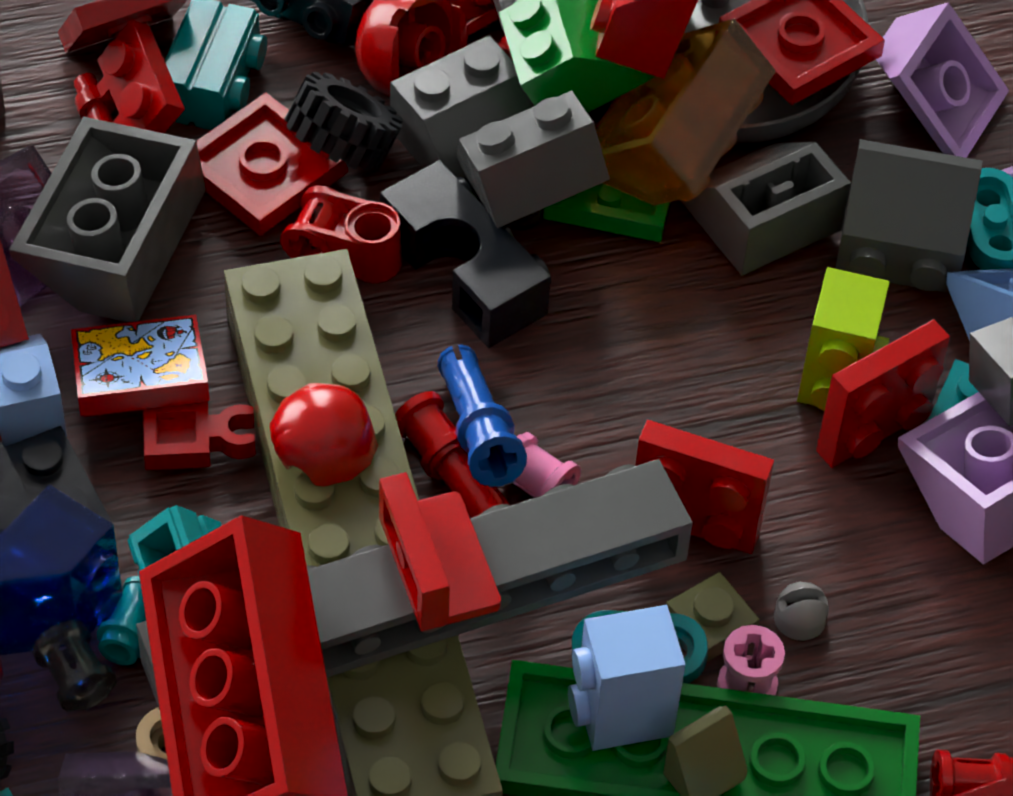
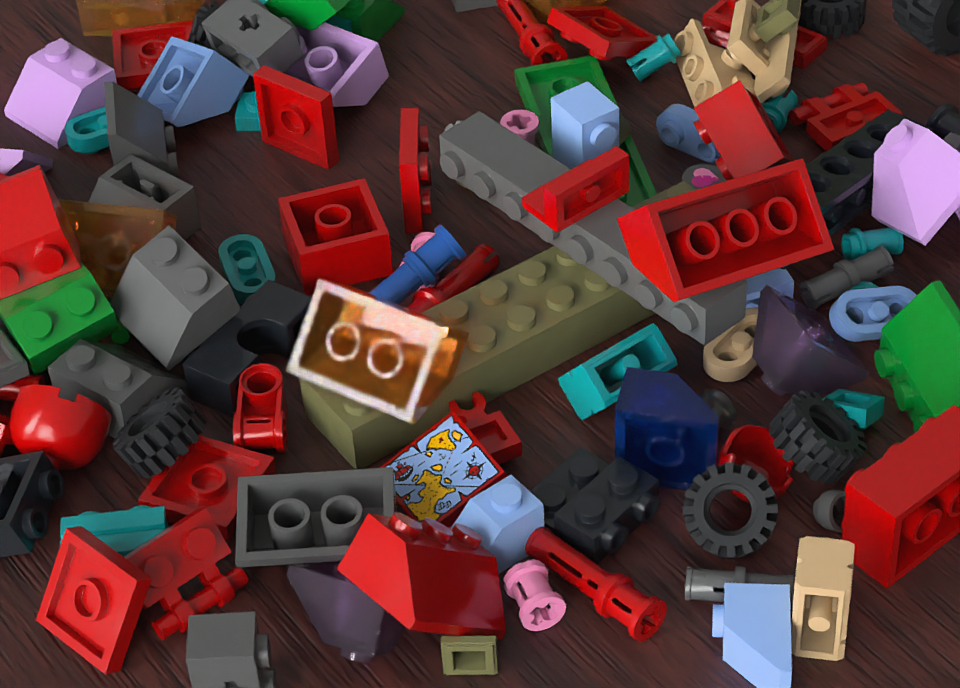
camera: 105 degrees left, 10 degrees down
(305, 299) = (375, 350): none -> clear orange slope
(324, 433) = (484, 308): red hair -> none
(612, 372) = (335, 235): none -> red brick
(619, 290) = (245, 265): none -> teal plate
(841, 330) = (261, 141): lime brick -> none

